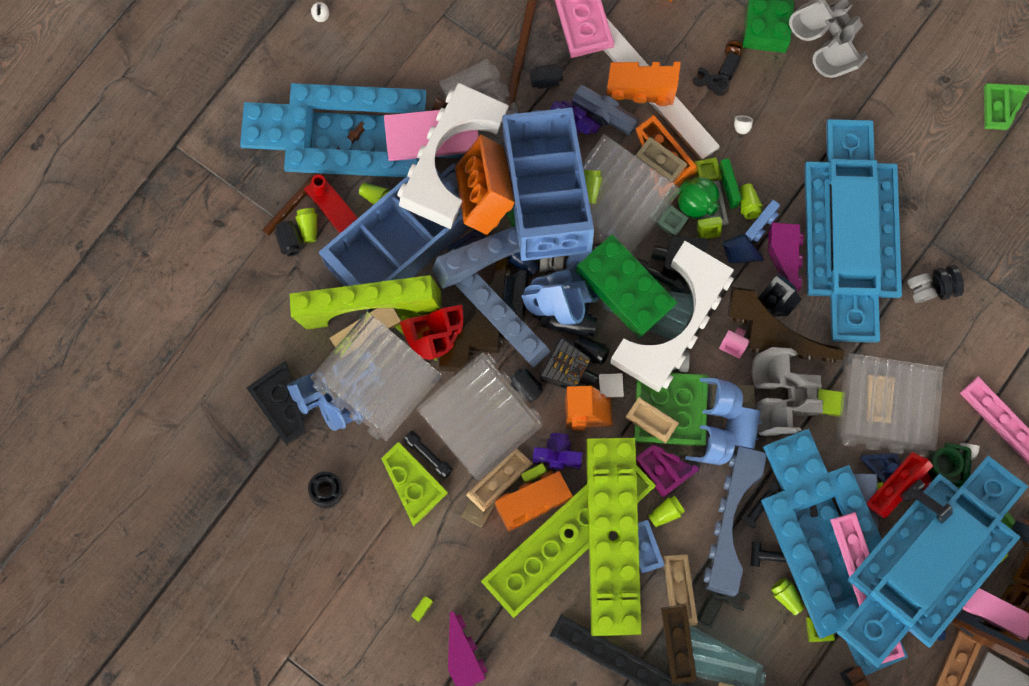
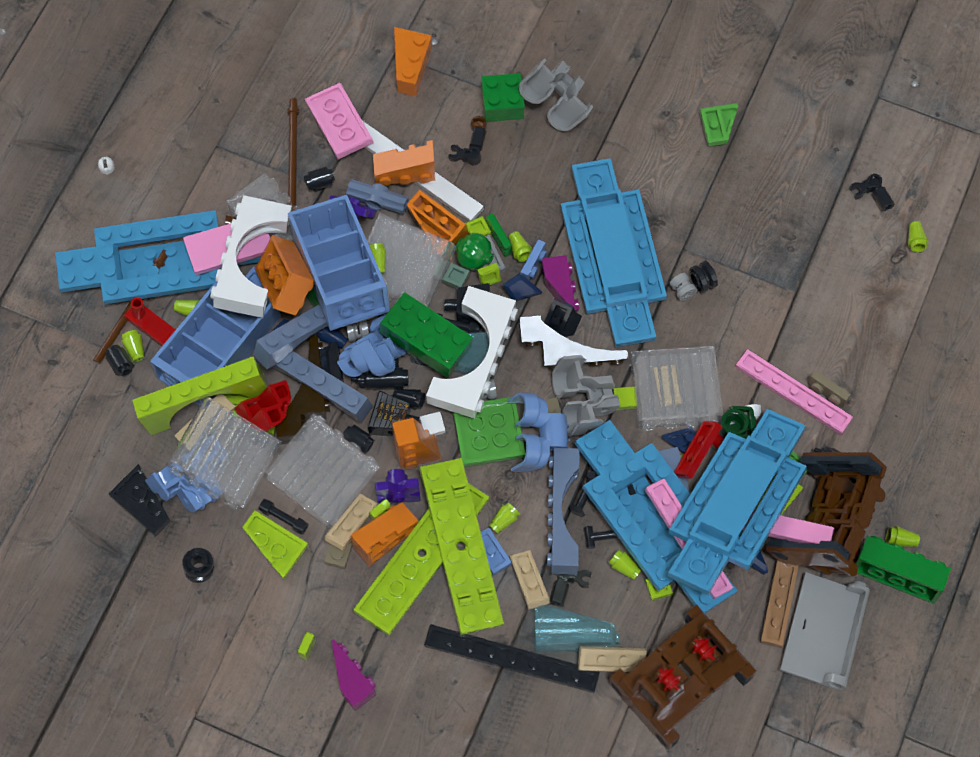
camera: 15 degrees left, 10 degrees down
(652, 420) = (474, 443): tan tile -> none
(661, 160) = (434, 224): dark tan plate -> none
(664, 469) = (494, 483): magenta wing -> none
(678, 644) = (536, 619): dark brown plate -> none
(735, 342) = (532, 365): bright pink tile -> none
(743, 124) = (500, 184): white hinge -> none
(914, 490) = (735, 458): black piece -> none

